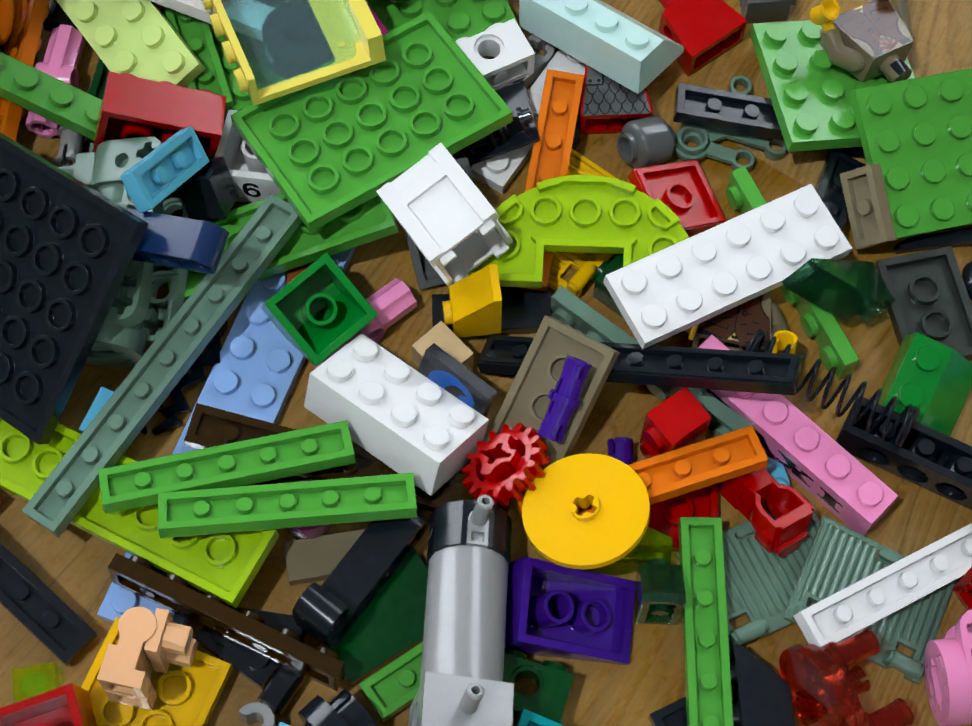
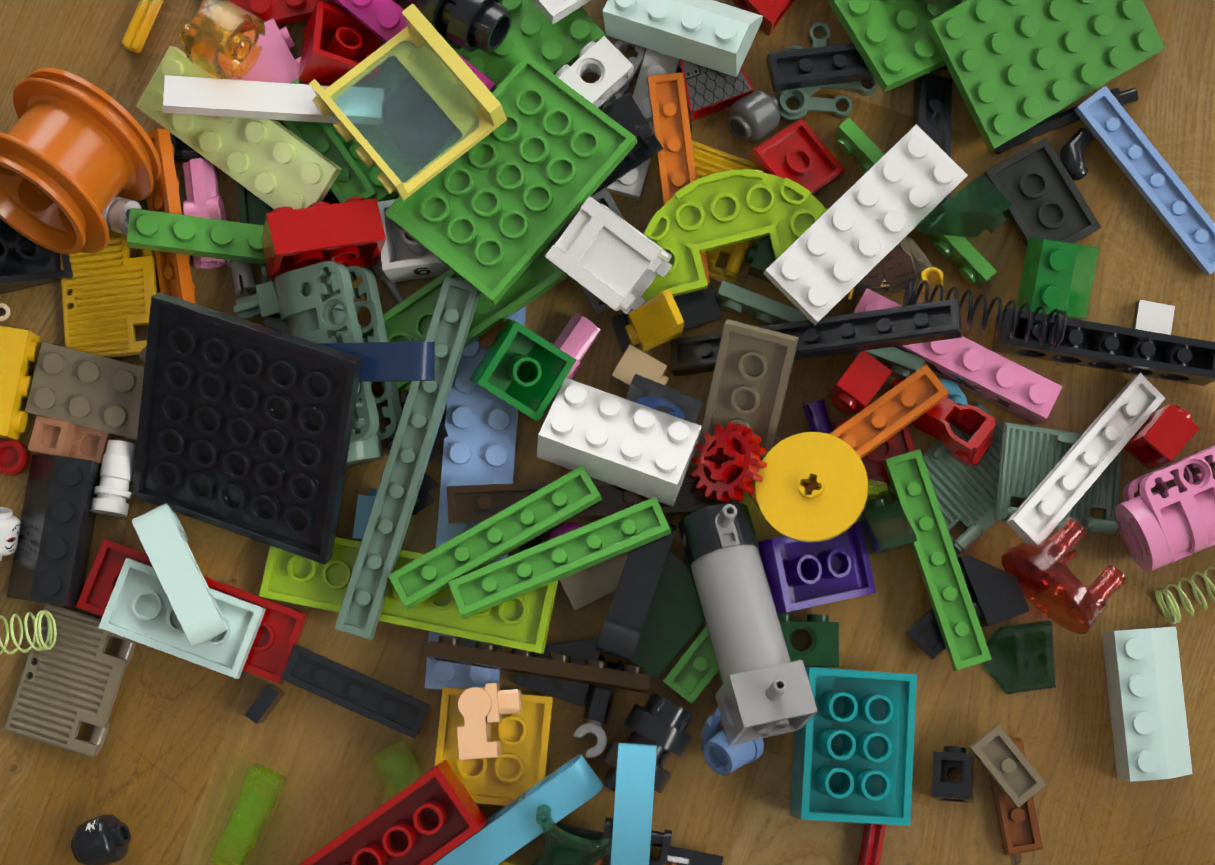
camera: 15 degrees left, 15 degrees up
(164, 169) = (352, 294): medium azure plate -> none
(209, 192) = (385, 286): black brick -> none
(564, 399) = (763, 392): dark purple pin -> none
(867, 206) = (967, 125): dark tan plate -> none

